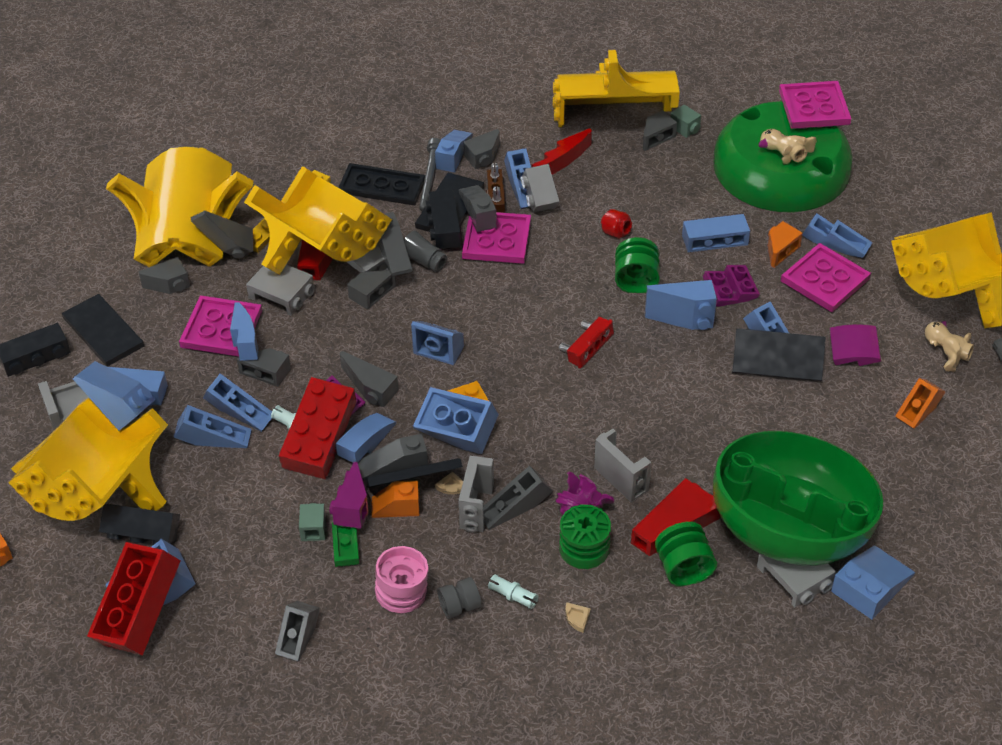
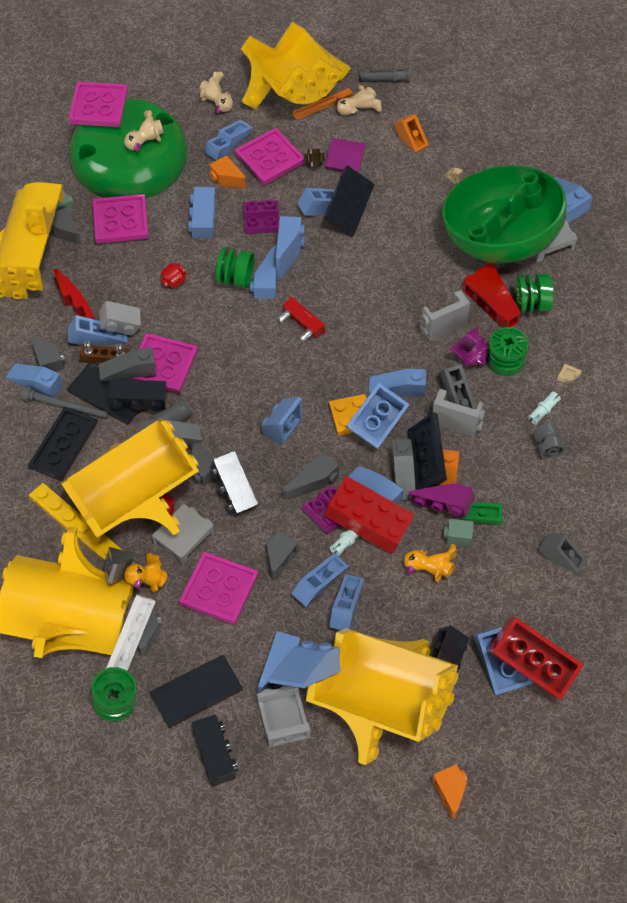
camera: 80 degrees left, 10 degrees up
(87, 261) = (115, 683): none -> green wheel
(146, 256) = (131, 632): none -> white plate
(225, 265) = (149, 574): none -> light orange animal
(243, 333) = (249, 559): medium blue slope -> none
(266, 504) = (436, 564): none -> light orange animal
(342, 309) = (233, 483): none -> brick
(401, 579) = (532, 473): bright pink wheel -> none
(516, 443) = (402, 382): none -> medium blue slope
(629, 299) = (265, 277): none -> medium blue slope
(684, 171) = (120, 218): none -> dark pink plate
(837, 313) = (314, 157): none -> dark brown gear
(867, 457) = (454, 175): none -> tan tile
(903, 211) = (212, 91): none -> tan animal
(932, 311) = (321, 104): none -> orange axle

